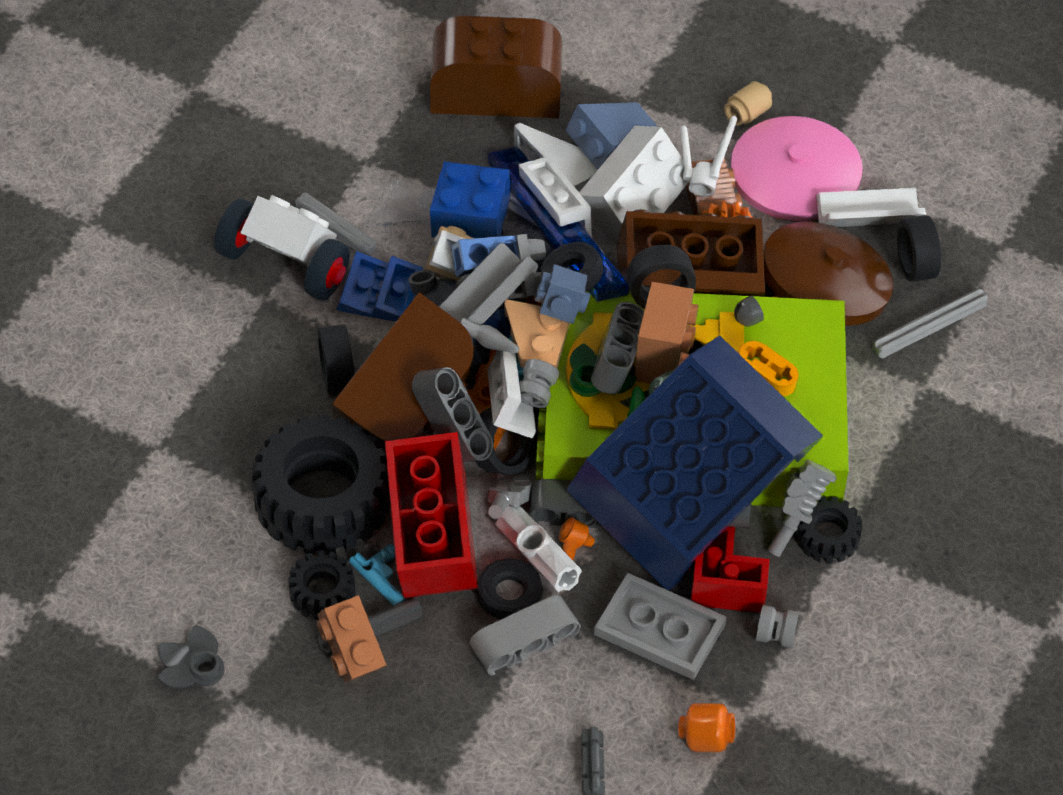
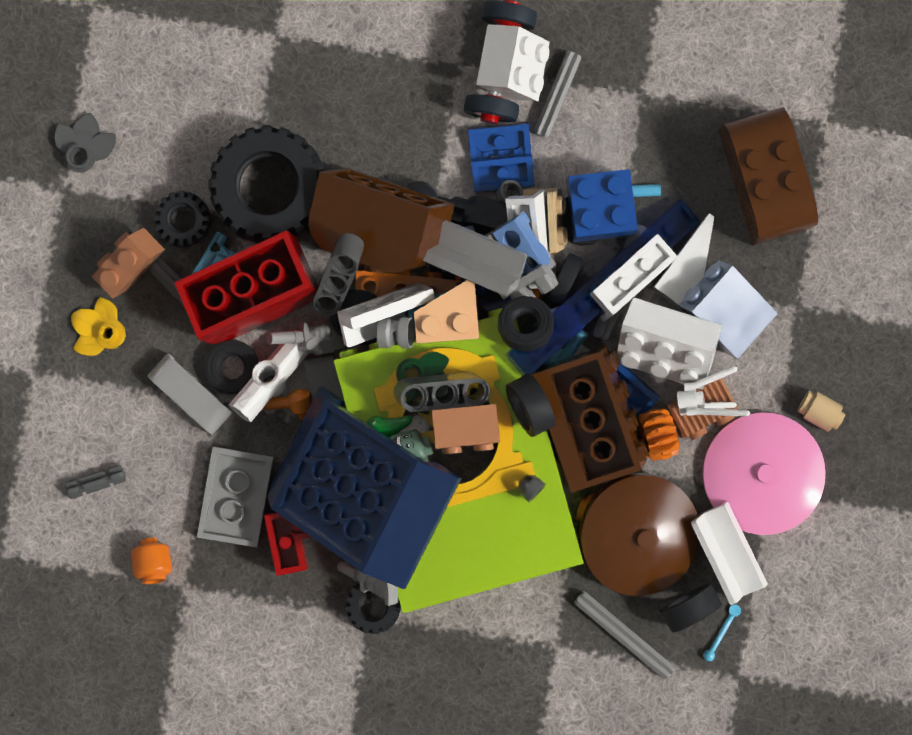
camera: 75 degrees right, 35 degrees up
(335, 357) = (398, 150): black tyre -> none
(409, 712) = (93, 327): none -> yellow plate
(489, 337) = (427, 278): light grey animal -> none
(562, 294) = (482, 327): sand blue brick -> none
(771, 366) = (471, 516): light orange beam -> none
(785, 629) = (263, 590): light grey wheel -> none
(972, 261) = (734, 610): none -> medium azure hinge

